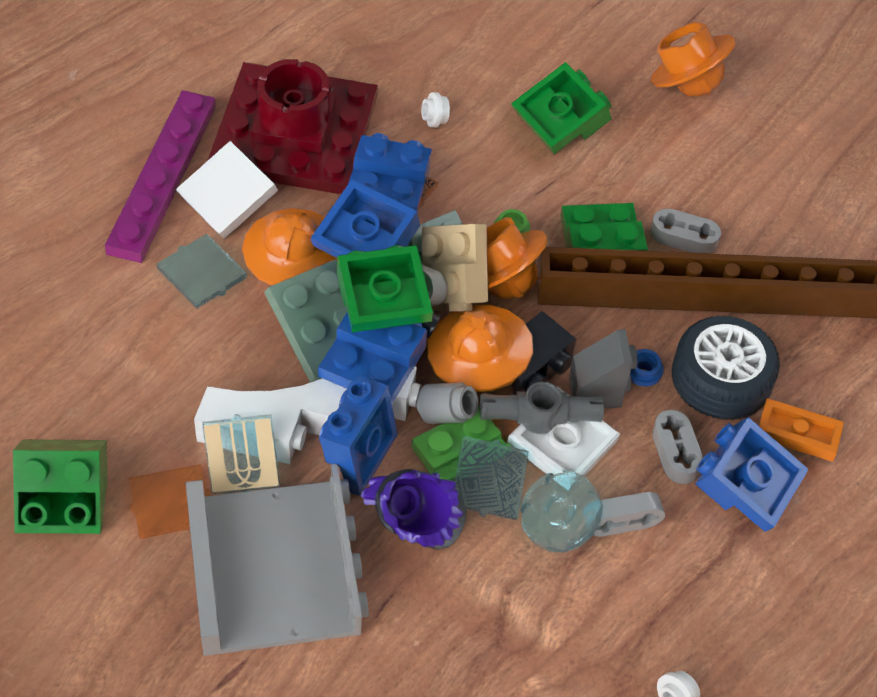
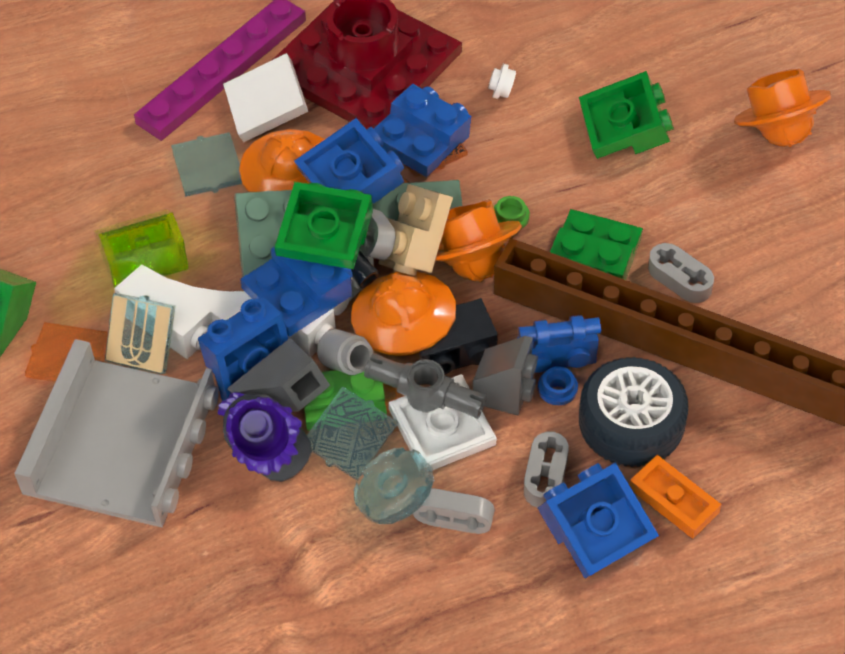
camera: 30 degrees right, 0 degrees up
(189, 364) = (146, 241): none -> clear neon green slope
(408, 443) = (285, 376): none -> dark grey slope
(641, 322) = (564, 343): none -> blue plate

